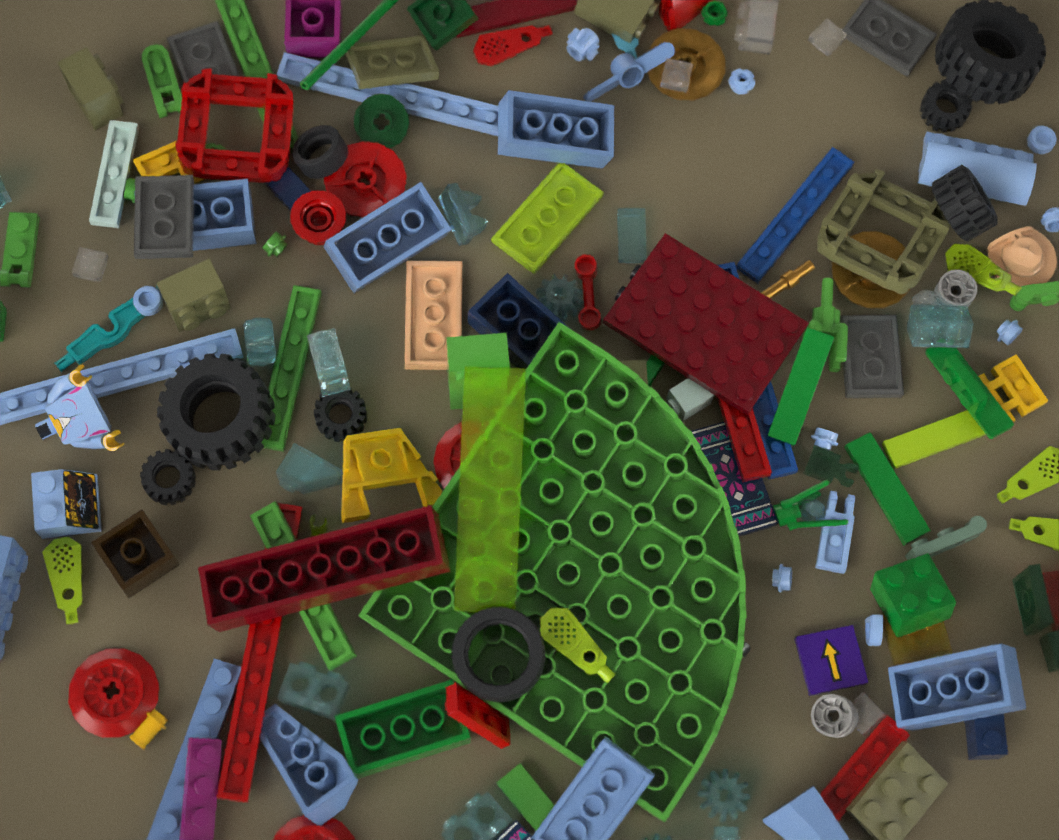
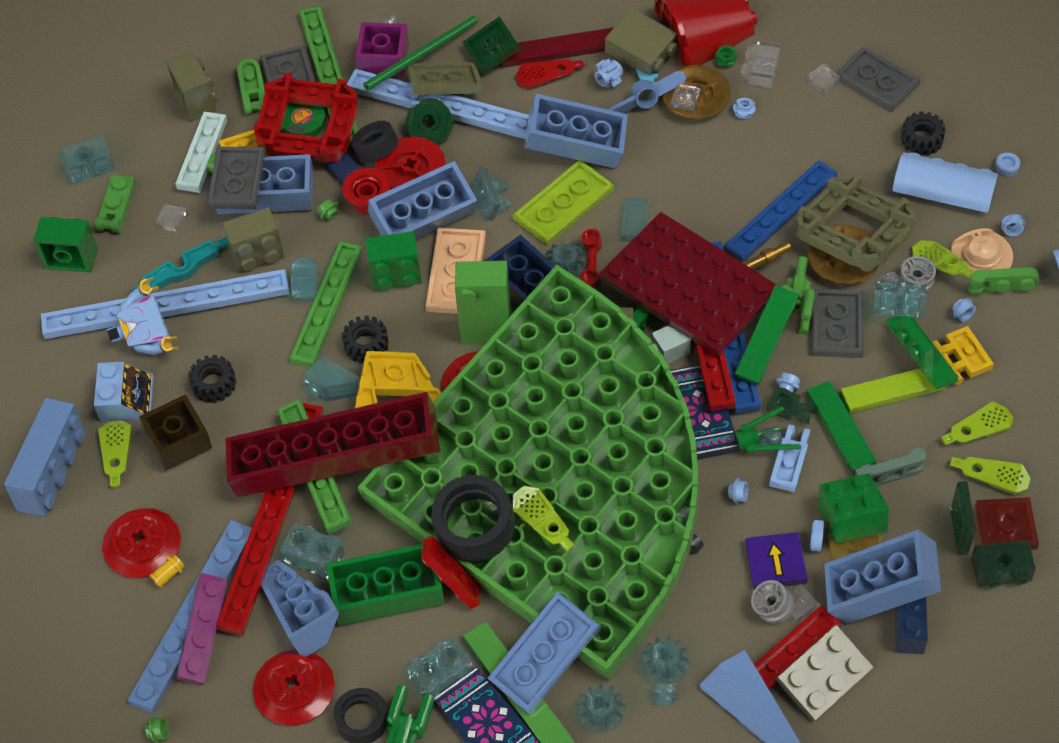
camera: 15 degrees right, 15 degrees down
(148, 300) = (215, 245): light blue tile -> none
(197, 383) = (255, 303): black tyre -> none
(231, 125) = (304, 119): none -> green tile
(328, 362) = (359, 295): clear light blue brick -> none
(362, 313) = (393, 260): none -> green brick
(490, 488) = (480, 380): clear neon green plate -> none
(964, 203) = (928, 202): black tyre -> none
(1004, 33) = (962, 89): black tyre -> none

